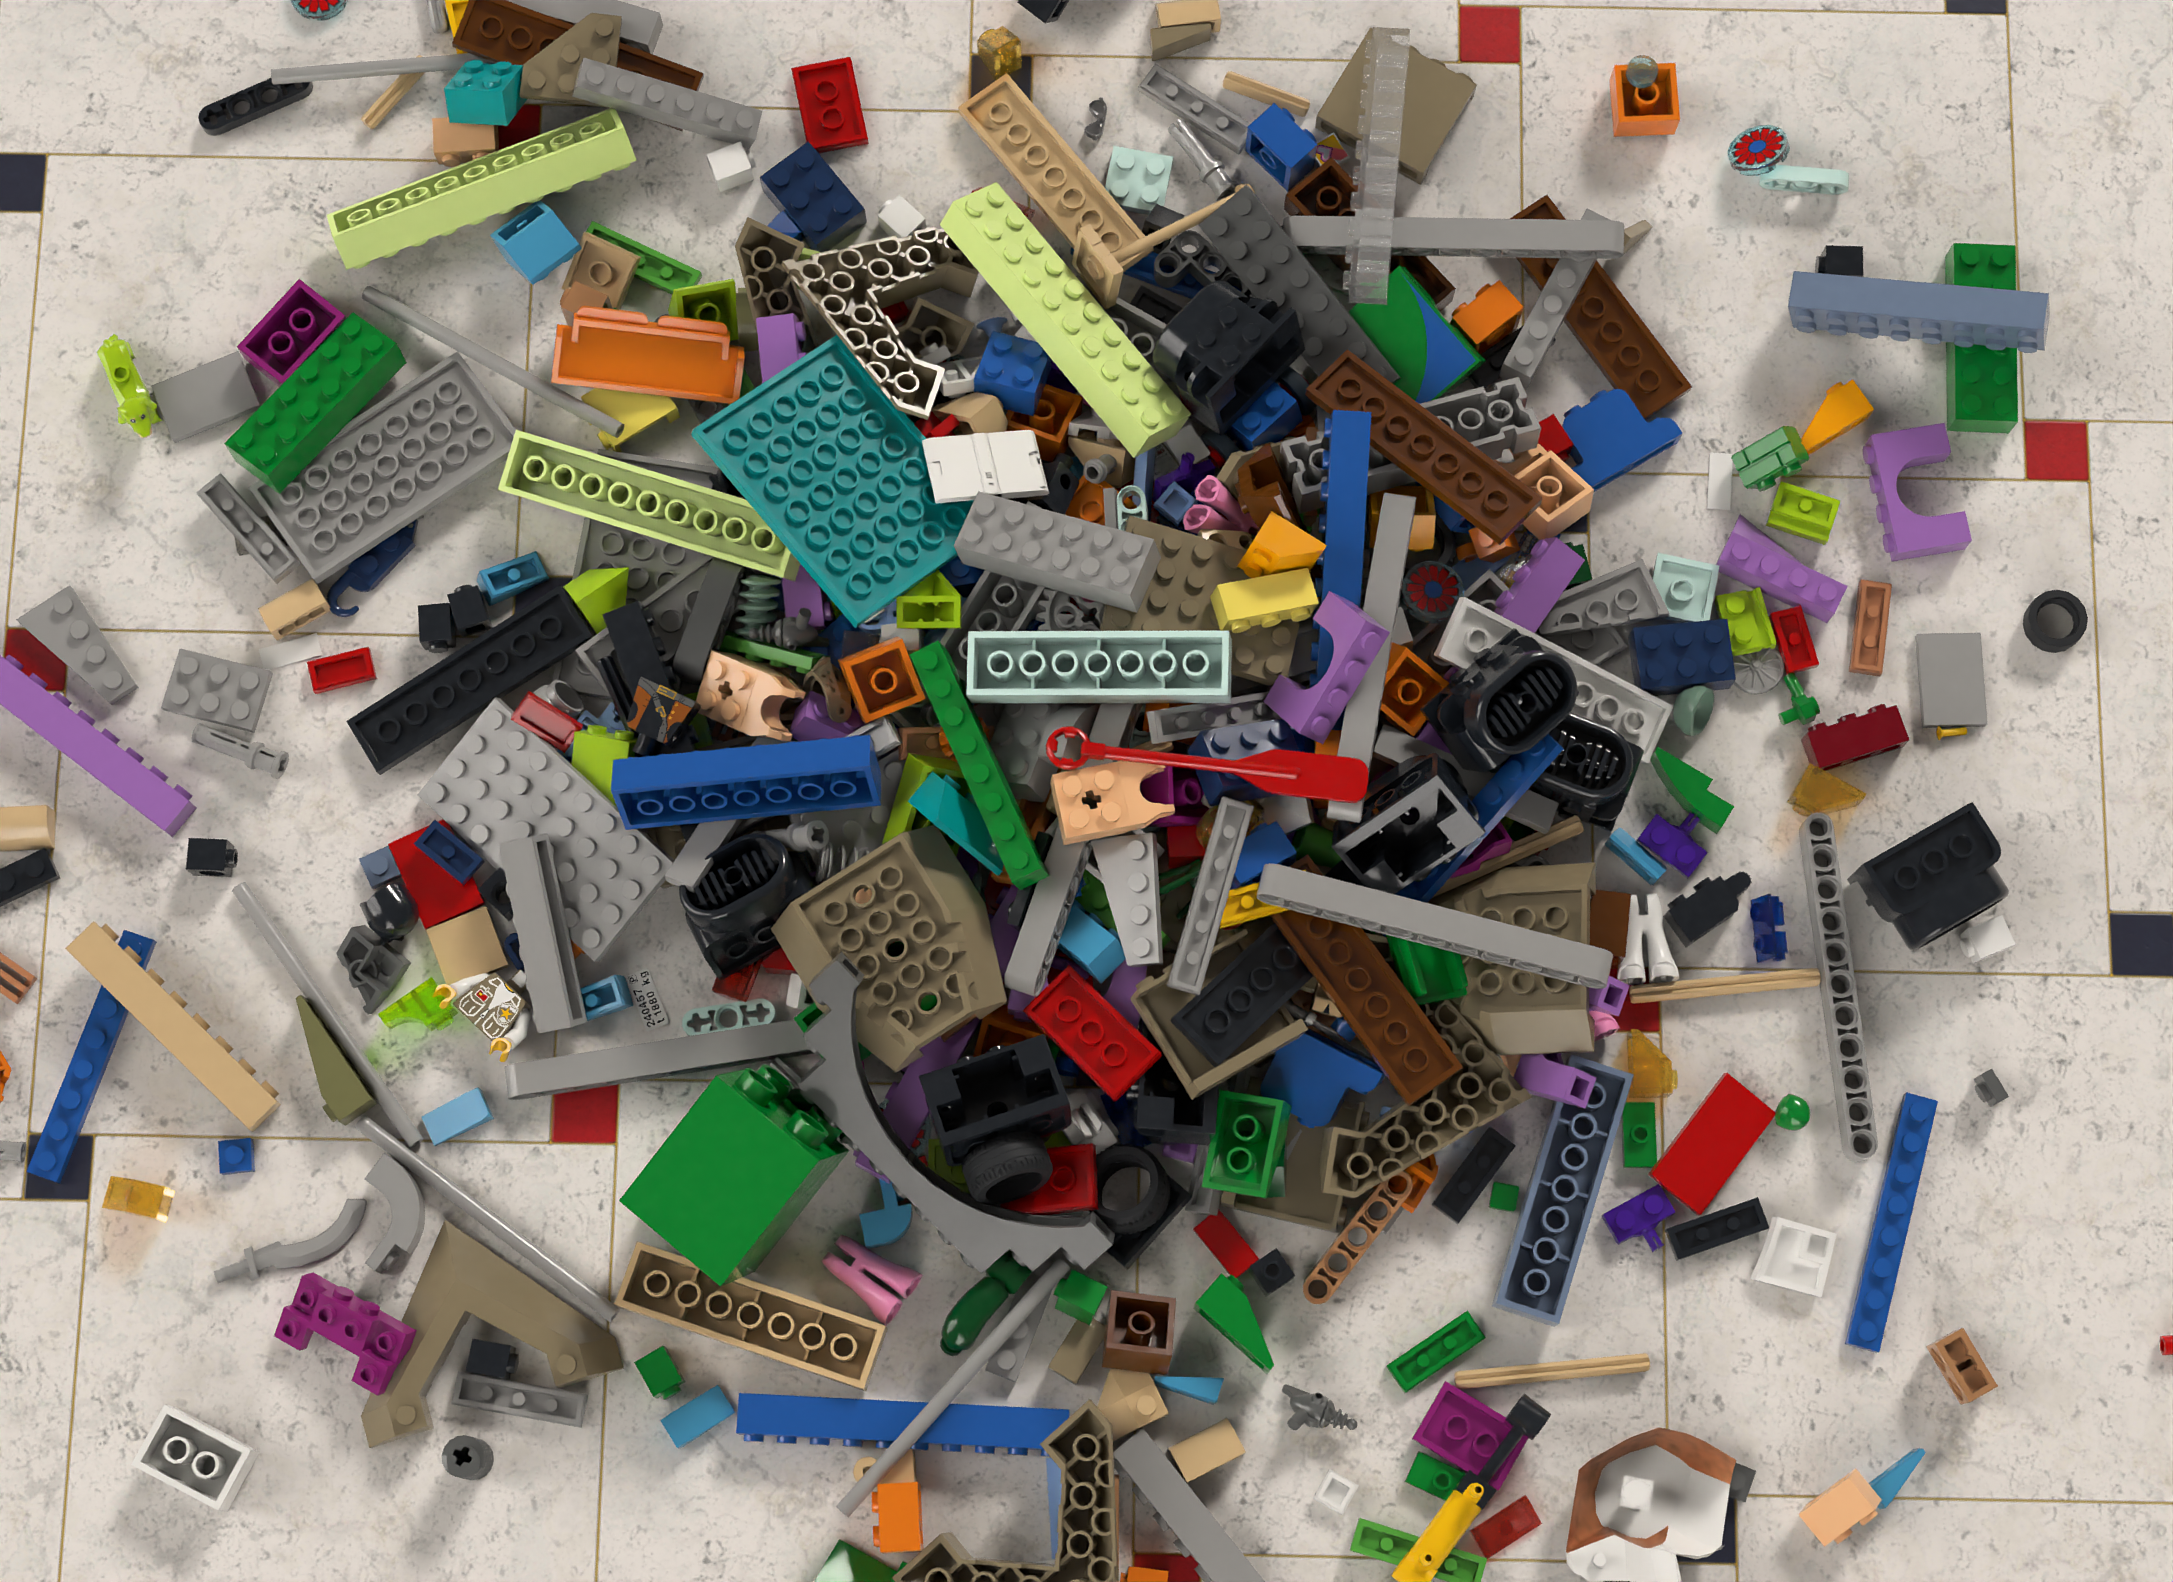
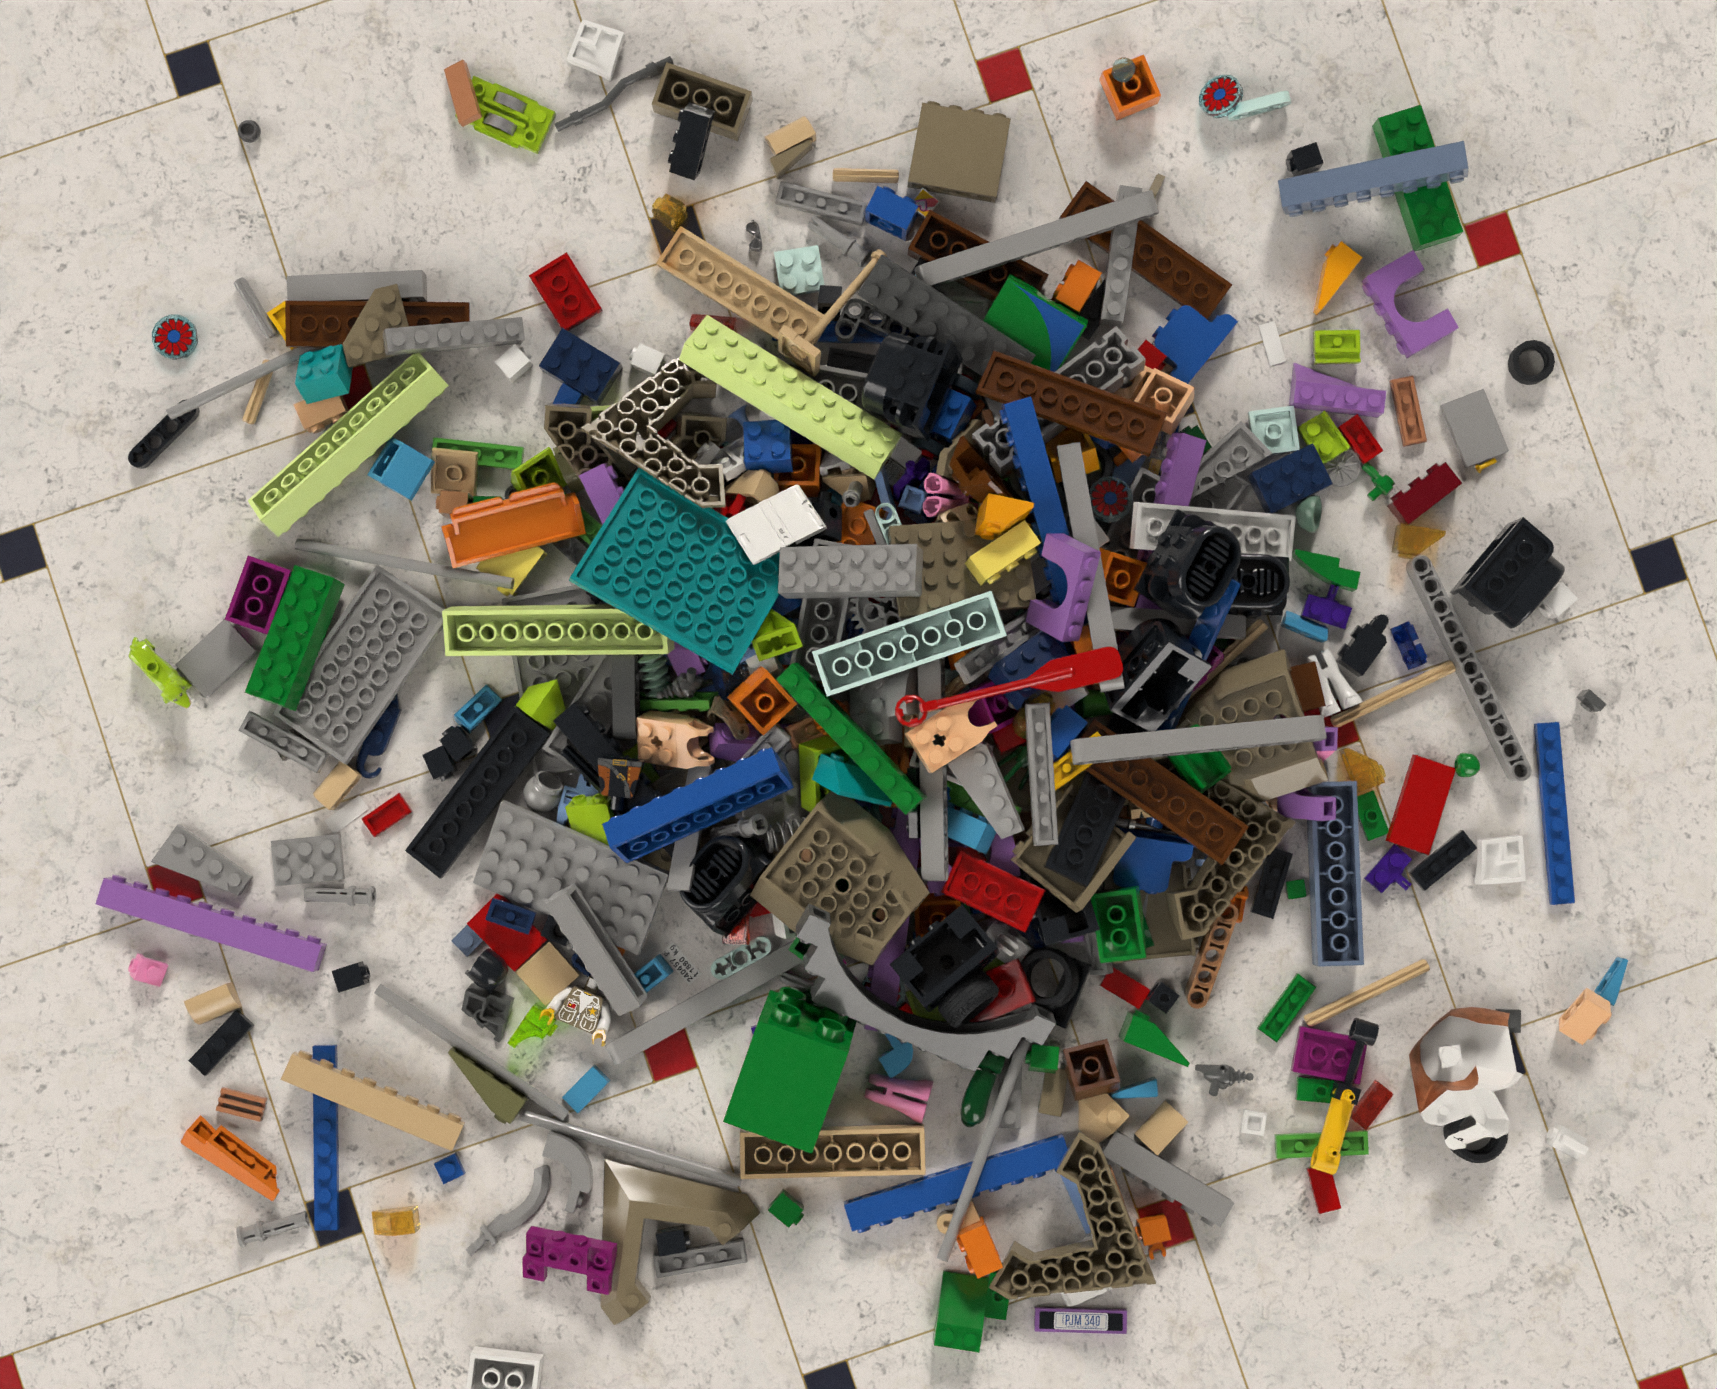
camera: 20 degrees left, 10 degrees up
(457, 1465) = (676, 1319): dark grey piece -> none
(546, 721) = (542, 806): tile -> none
(697, 1416) = (821, 1227): dark azure slope -> none
(1378, 166) = (968, 208): clear brick -> none
(1770, 458) = (1303, 318): green brick -> none
(1962, 1366) = (1632, 894): medium nougat brick -> none

